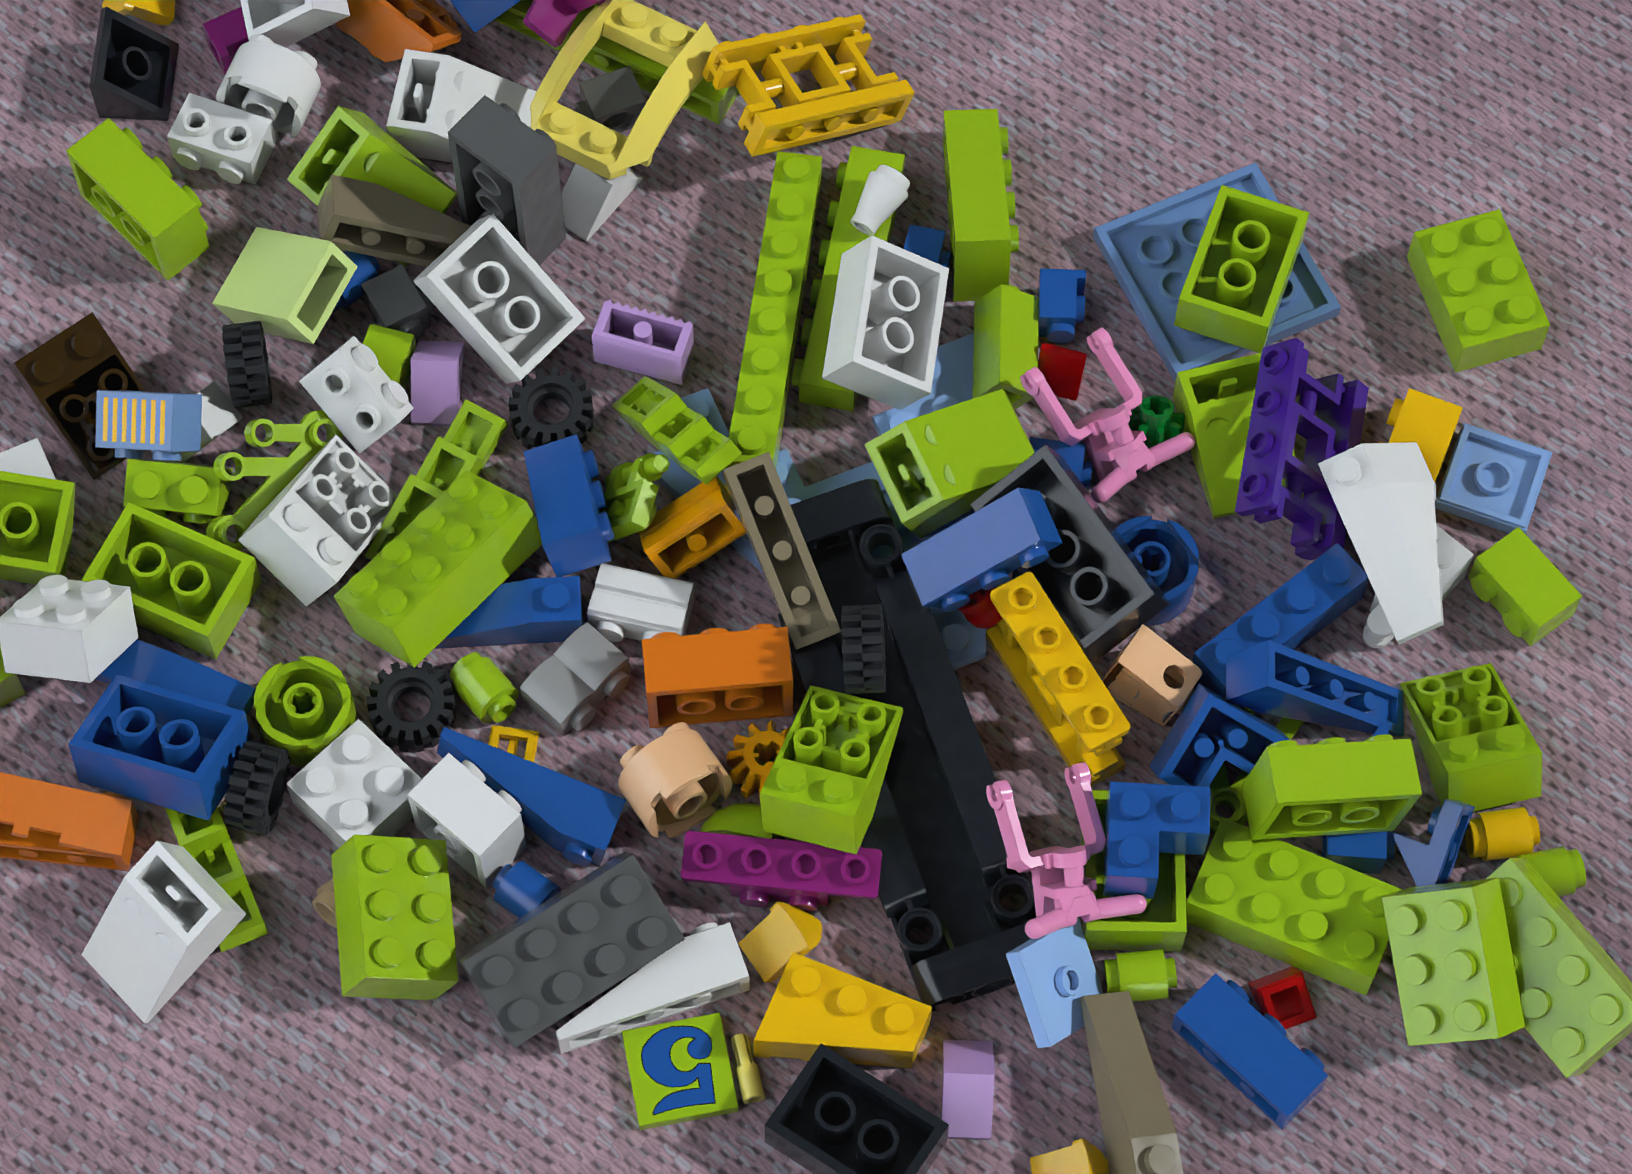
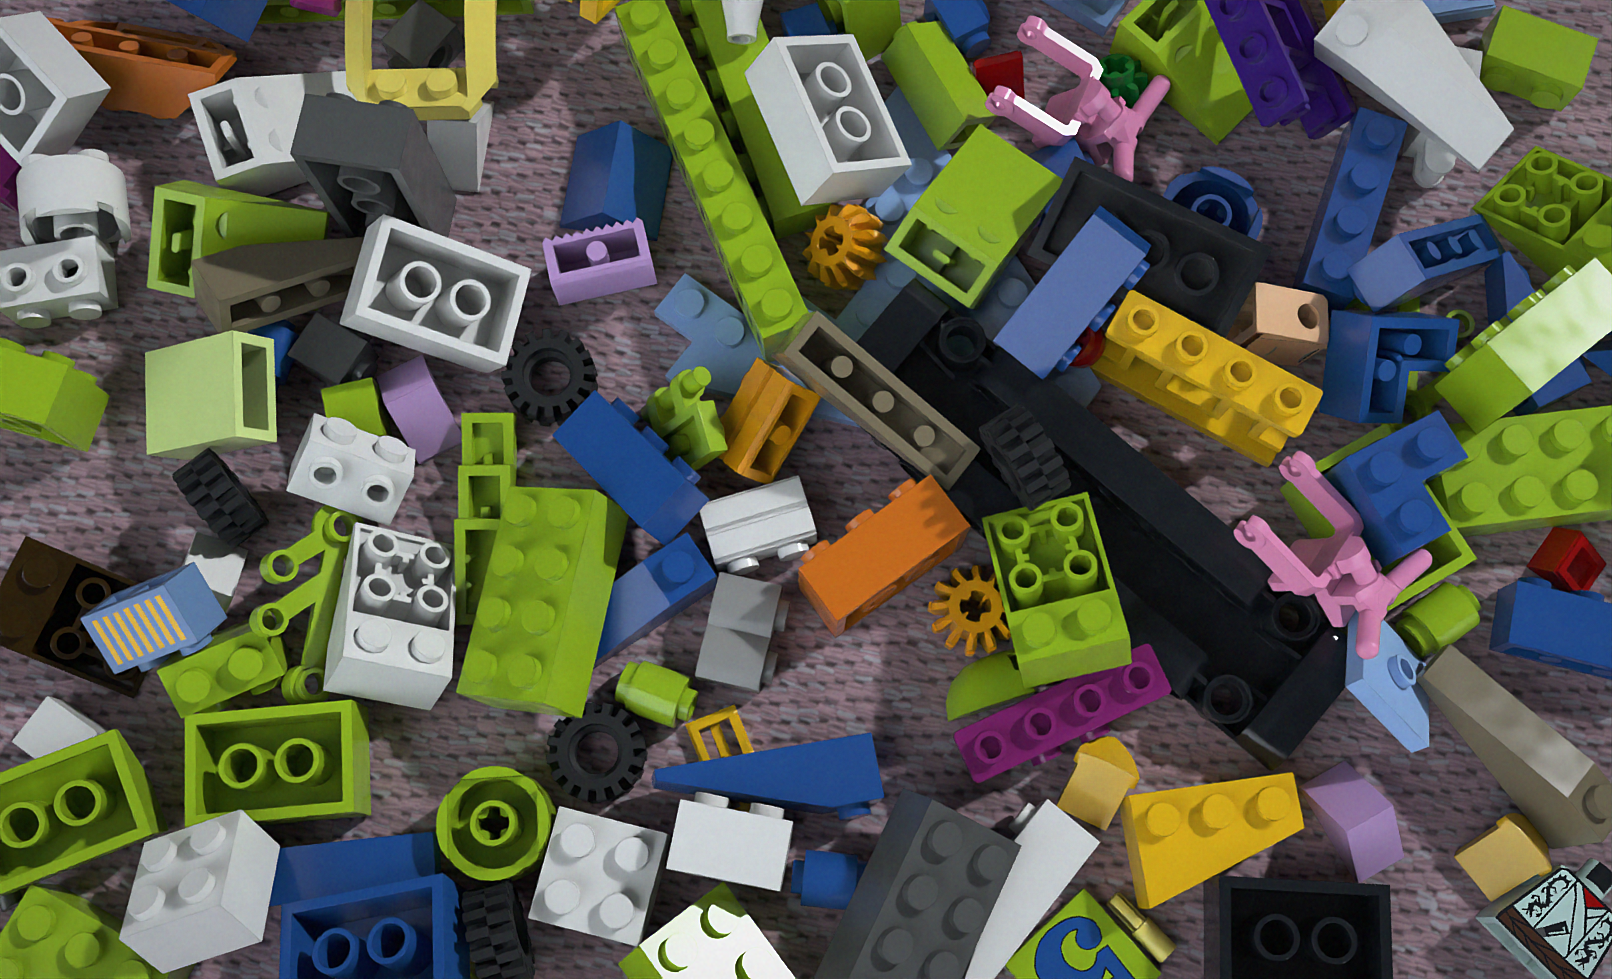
camera: 30 degrees left, 10 degrees up
(673, 781) = (902, 686): light nougat brick -> none
(676, 429) = (692, 332): lime slope -> none
(701, 286) = (616, 178): none -> blue slope
(842, 430) = (845, 247): none -> light orange gear

